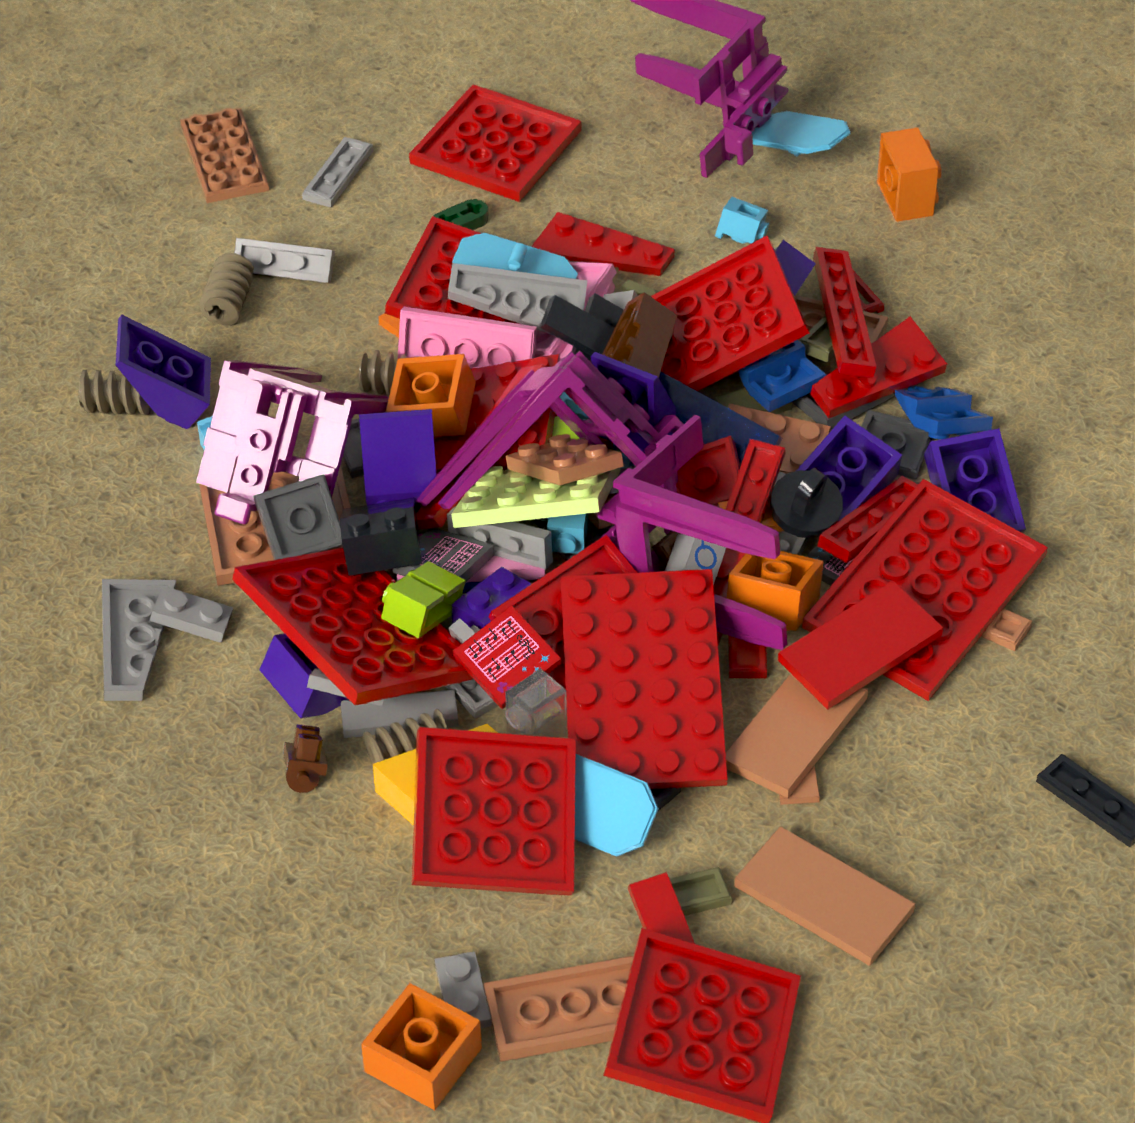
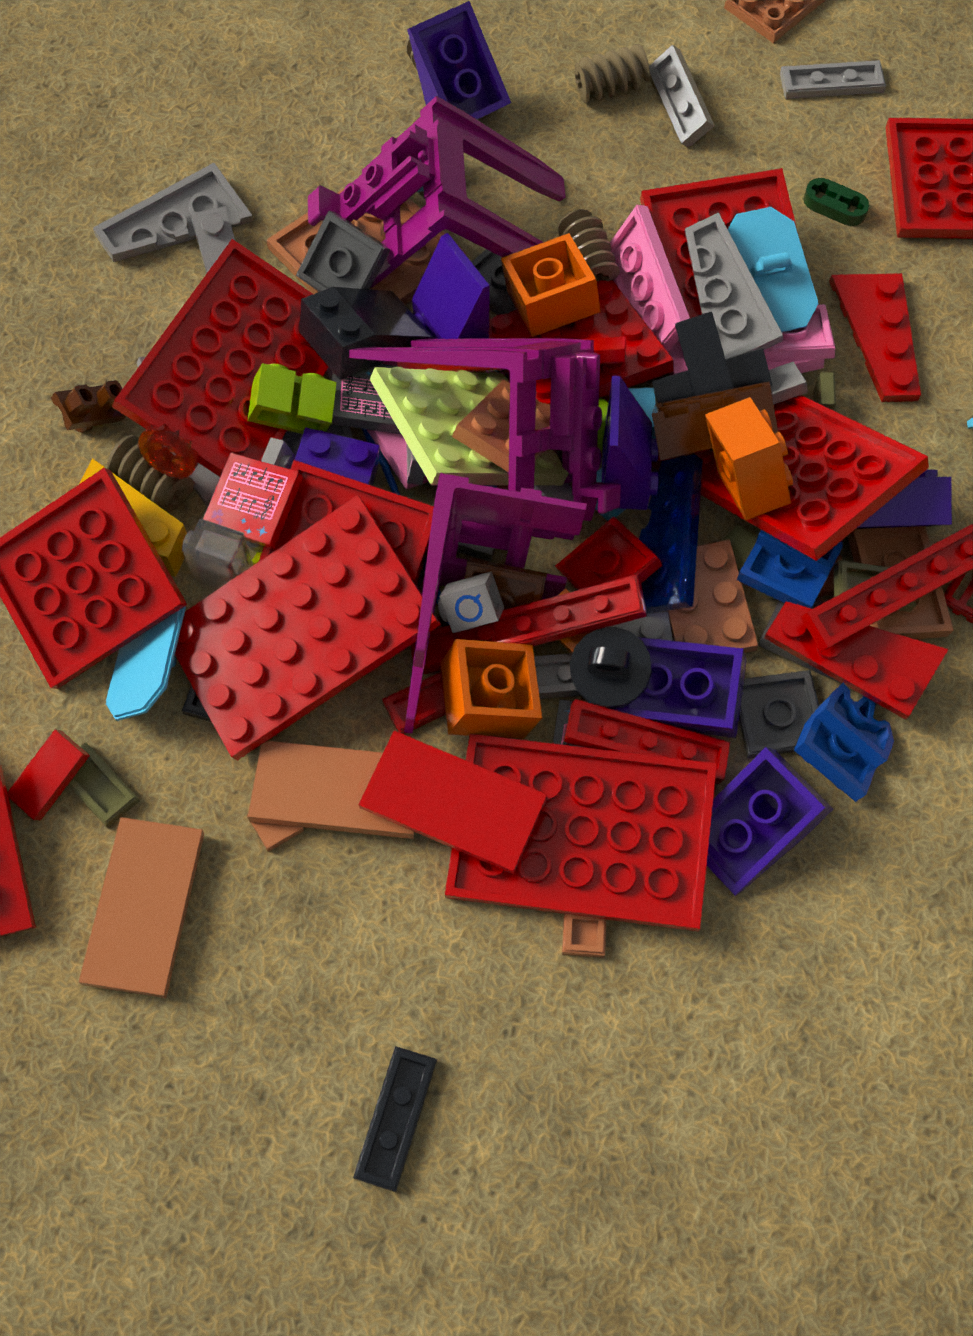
camera: 60 degrees right, 20 degrees up
(434, 689) = (161, 458): none -> clear red gear
(698, 331) = (750, 457): none -> orange brick

